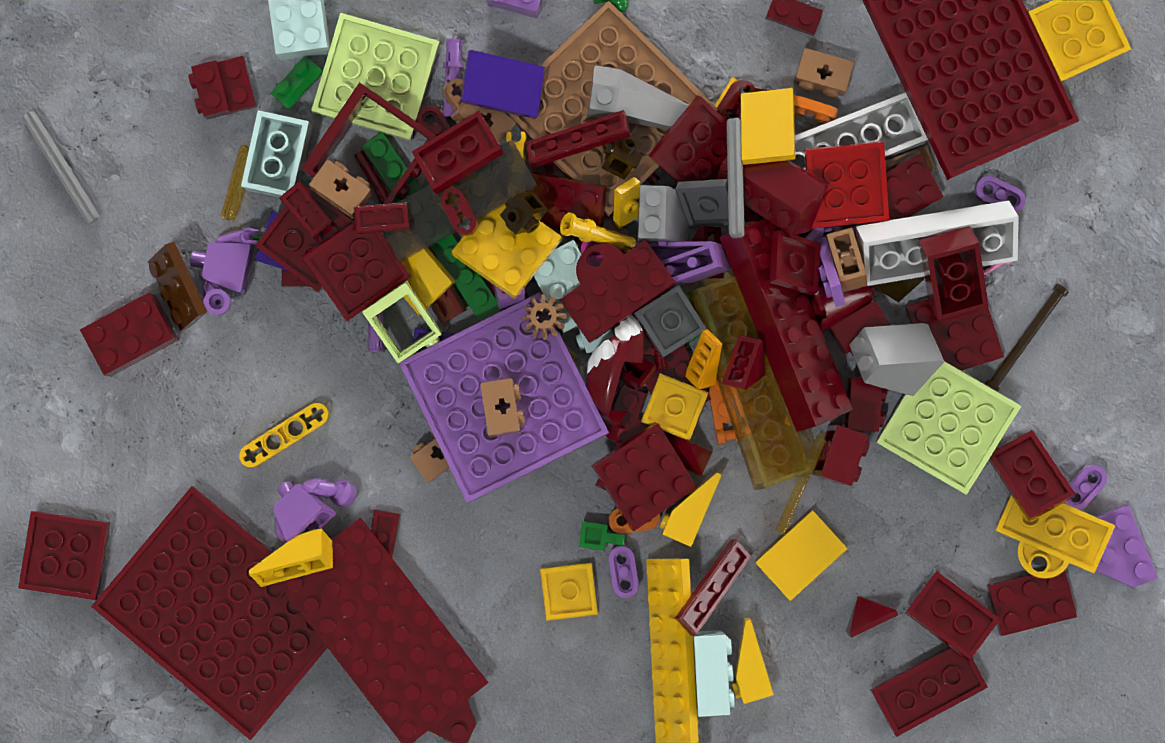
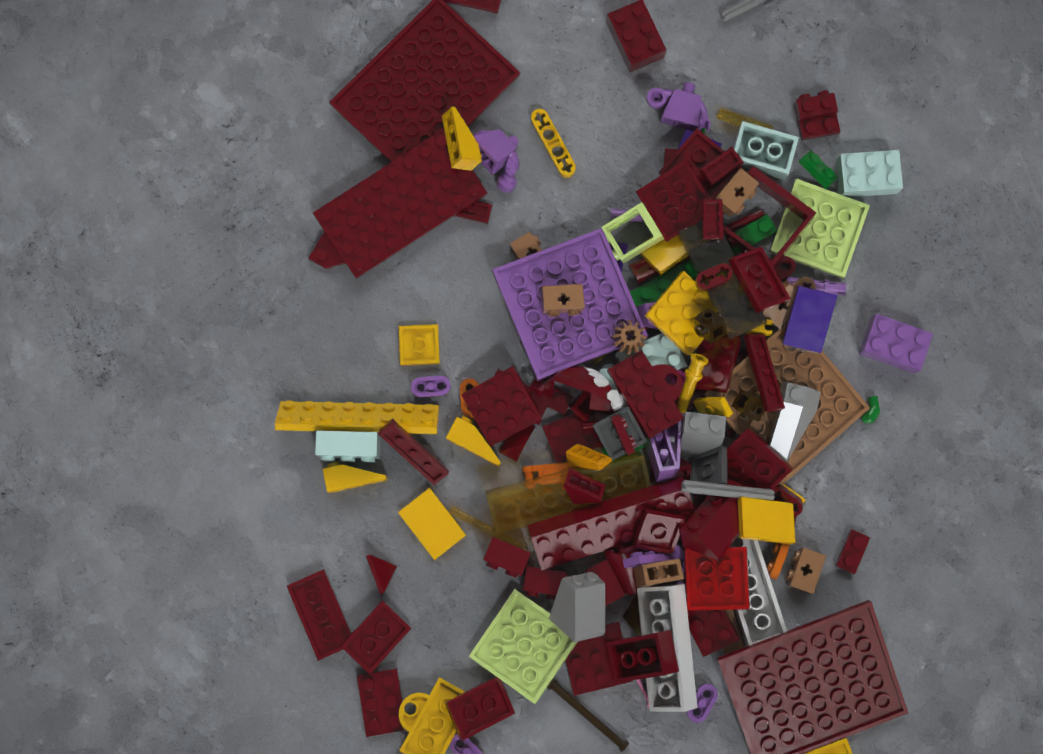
camera: 90 degrees right, 5 degrees down
(177, 286) = (669, 70): reddish brown plate -> none
(596, 536) = (459, 368): green plate -> none
(663, 321) = (626, 441): none -> dark red plate
(675, 406) = (553, 434): yellow tile -> none

